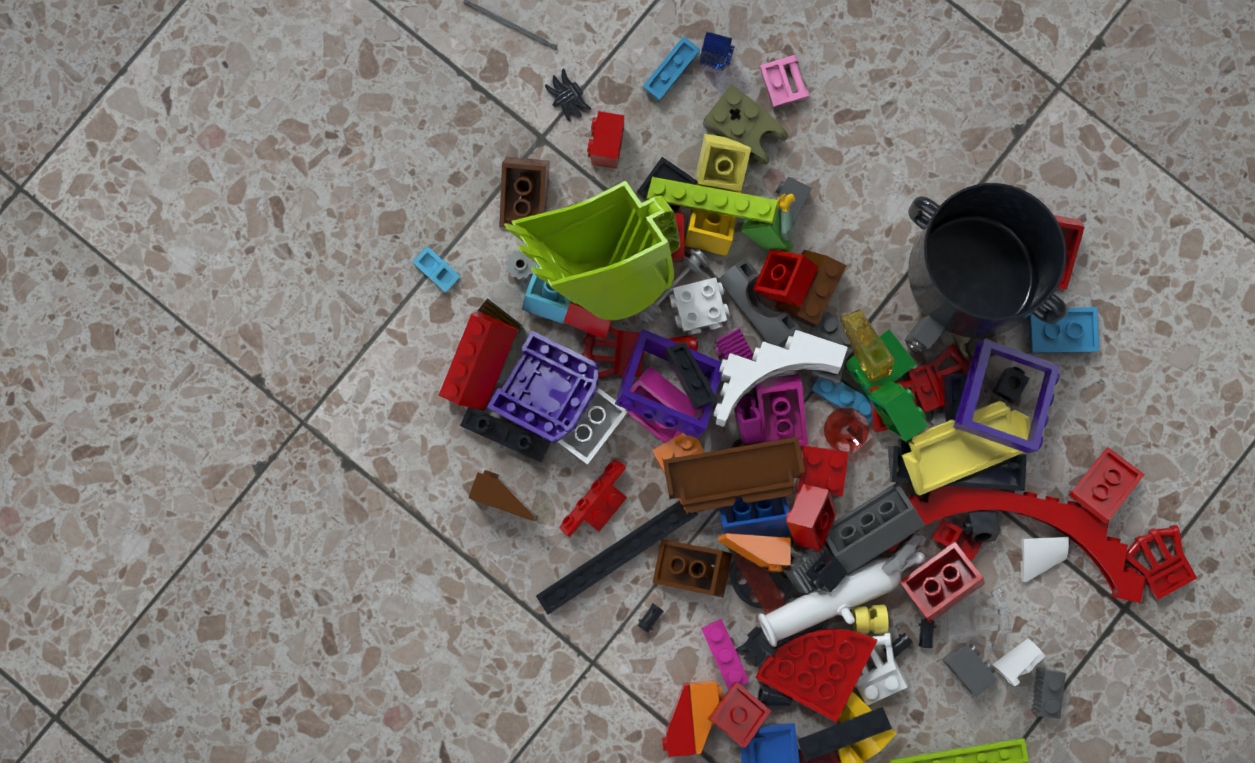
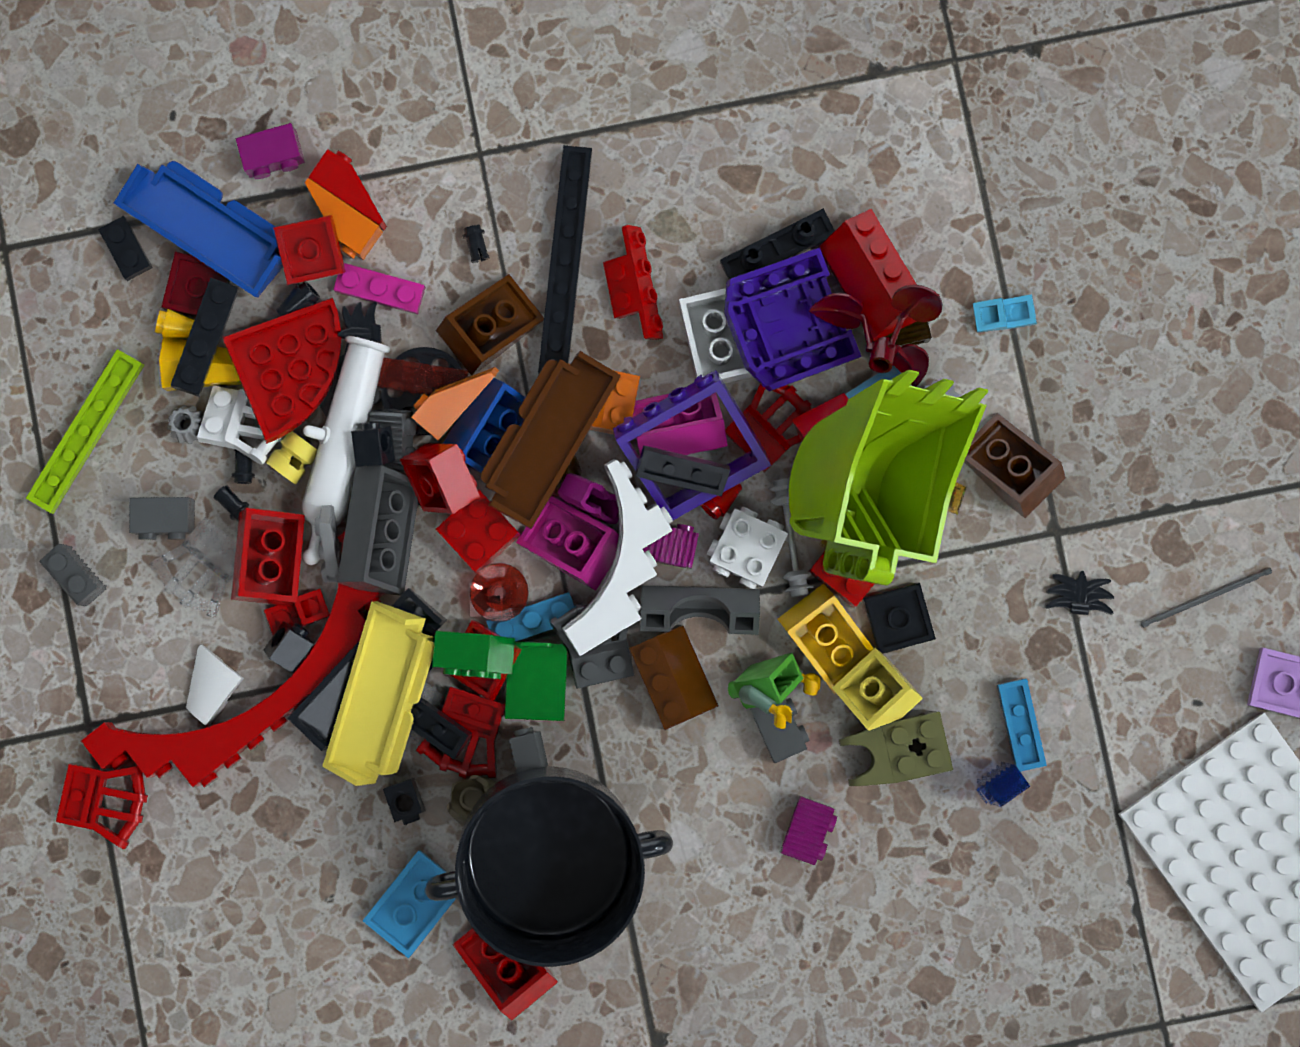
camera: 140 degrees right, 0 degrees up
(496, 493) = (721, 189): reddish brown slope -> none
(521, 314) = (913, 300): none -> dark red plant
(607, 139) = (999, 592): red brick -> none
(715, 200) = (844, 646): lime plate -> none
(778, 84) = (915, 824): bright pink plate -> none
(785, 277) = (703, 657): red brick -> none
(832, 140) = (808, 831): none -> magenta brick
(867, 346) = (565, 680): clear yellow slope -> none
(908, 708) = (179, 417): none -> light grey piece
(972, 389) = (436, 754): dark purple window -> none
(1019, 661) = (127, 570): white slope -> none
(1106, 485) = (223, 808): red plate -> none

